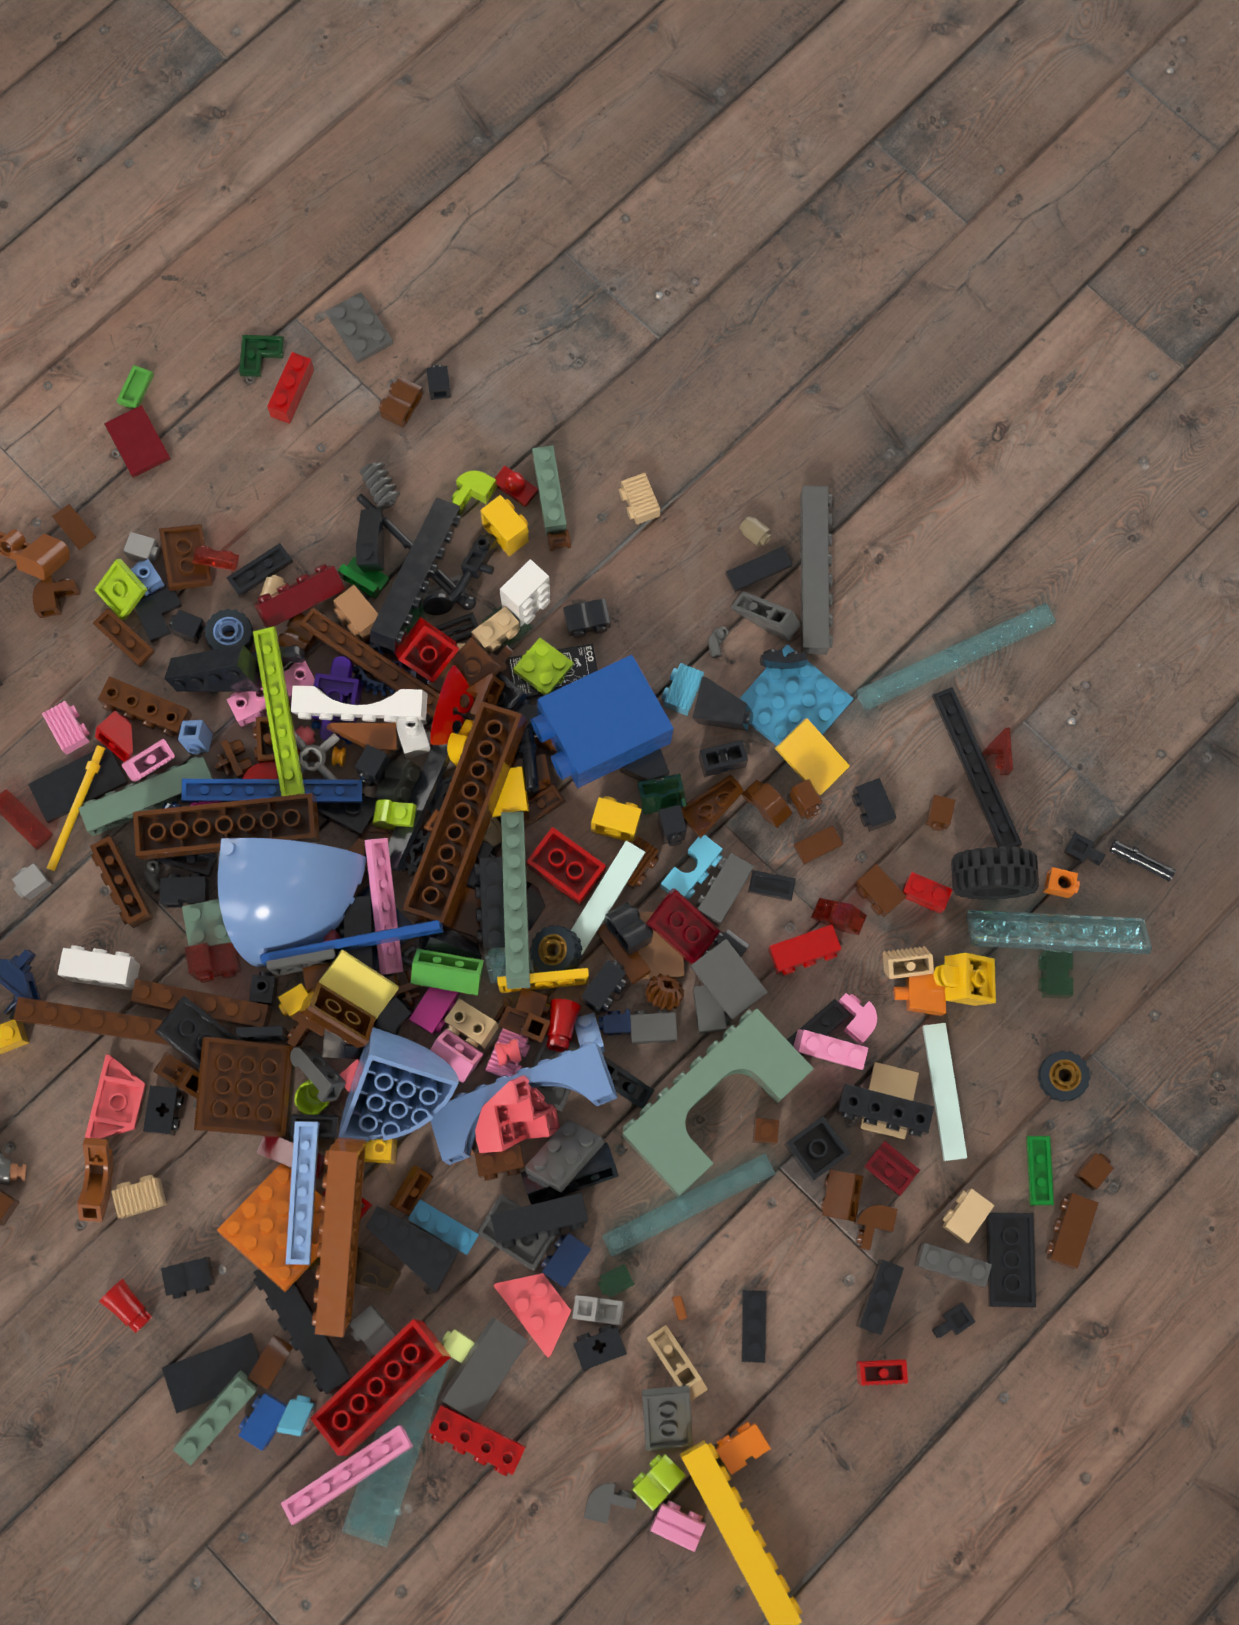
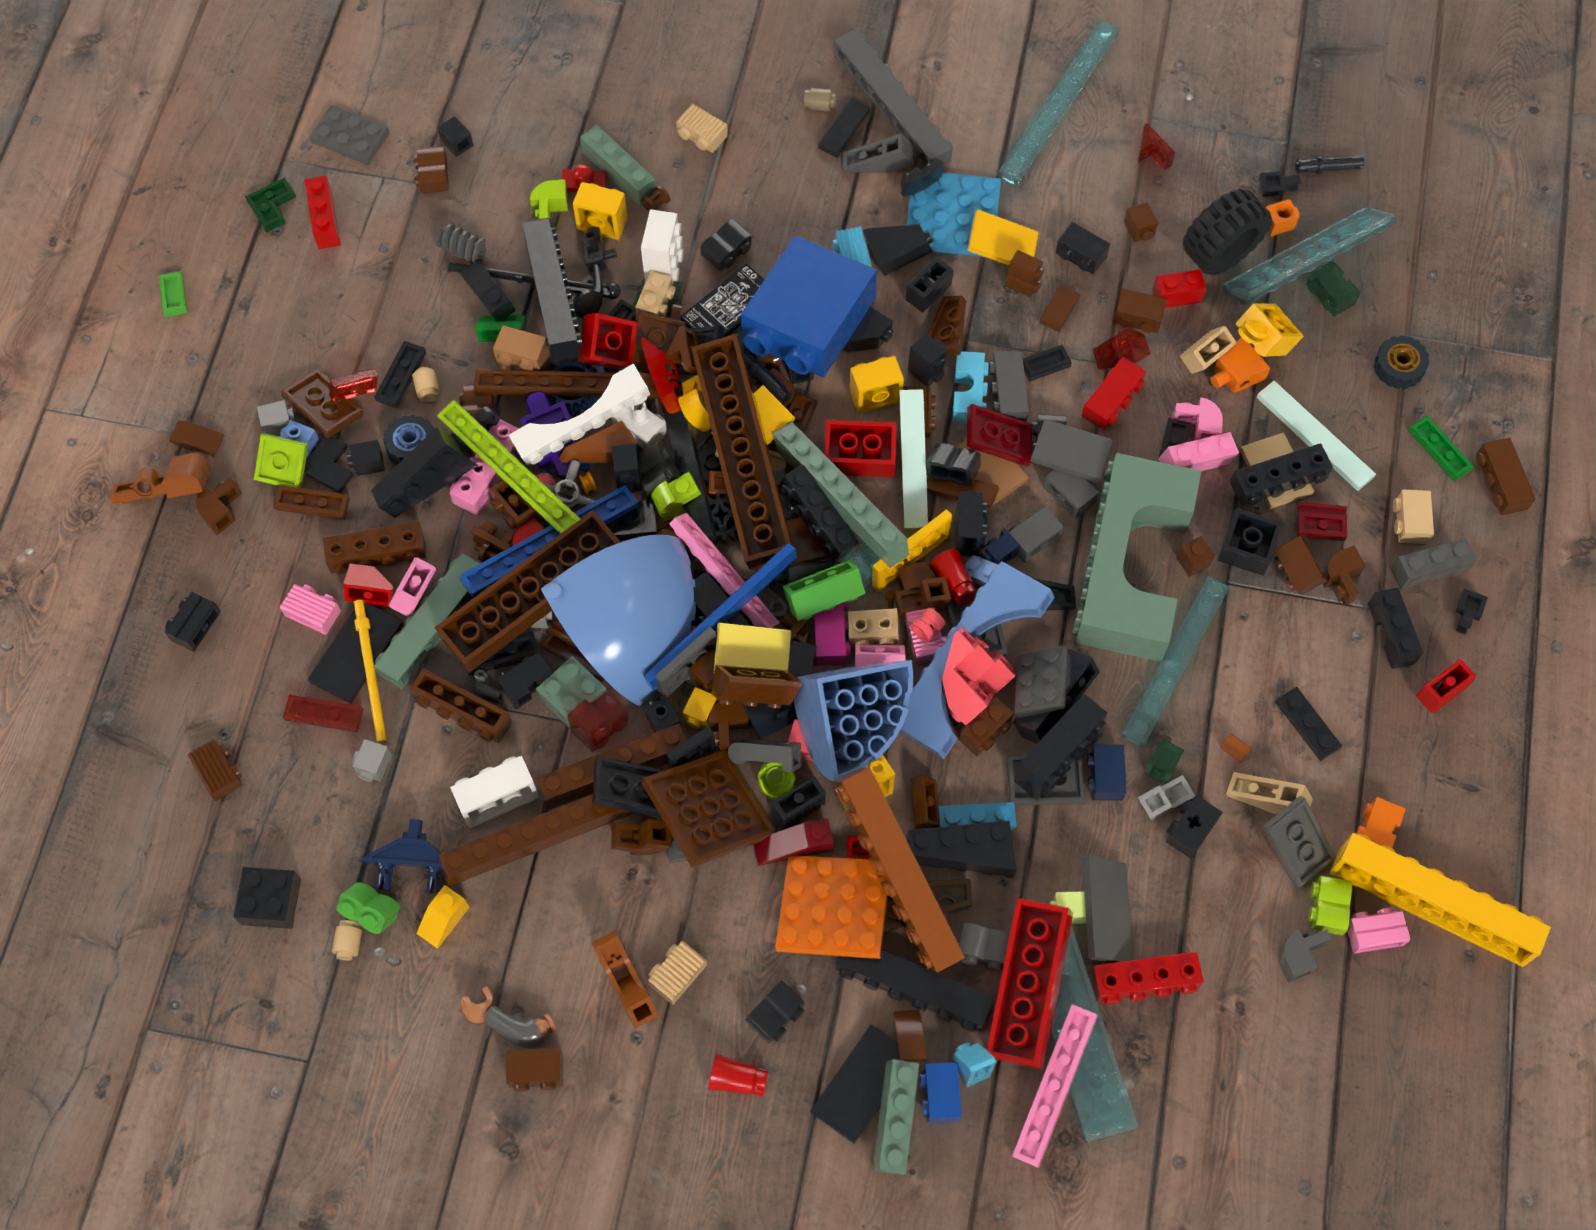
camera: 30 degrees left, 10 degrees down
(116, 1101) = (593, 901): coral wing -> none
(137, 441) = (206, 335): dark red tile -> none
(158, 1099) = (648, 895): black brick -> none
(195, 736) = (442, 541): medium blue brick -> none
(299, 596) = (455, 370): dark red brick -> none
(302, 1193) = (834, 858): light blue plate -> none
(537, 1308) = (1112, 831): coral wing -> none
(543, 667) = (718, 304): lime plate -> none
(545, 943) = (909, 505): black wheel -> none
(661, 793) = (898, 340): clear green brick -> none
(664, 992) = (1023, 497): reddish brown gear -> none
(716, 639) = (849, 201): dark grey arm -> none
(768, 801) = (996, 295): reddish brown brick -> none
(976, 769) = (1136, 171): black tile -> none
(1012, 1260) = (1463, 517): black tile -> none
(1094, 1170) = (1485, 419): reddish brown brick -> none

